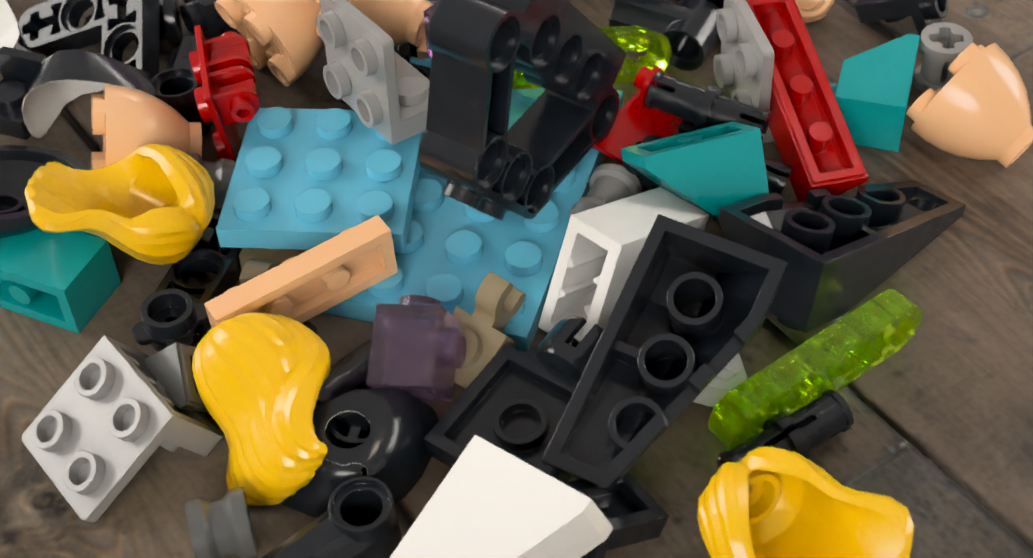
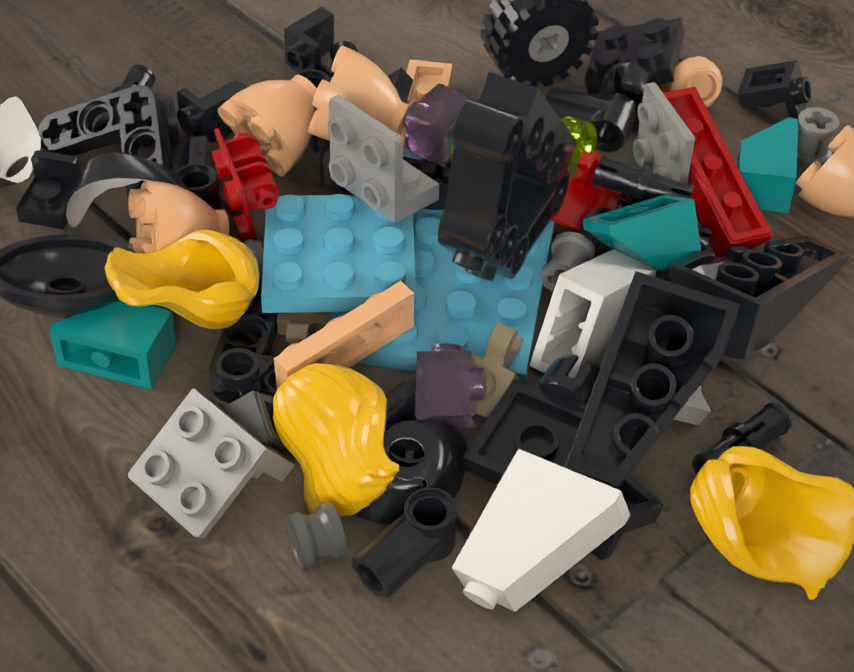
camera: 10 degrees left, 0 degrees up
(819, 364) = (757, 385): clear neon green beam -> none

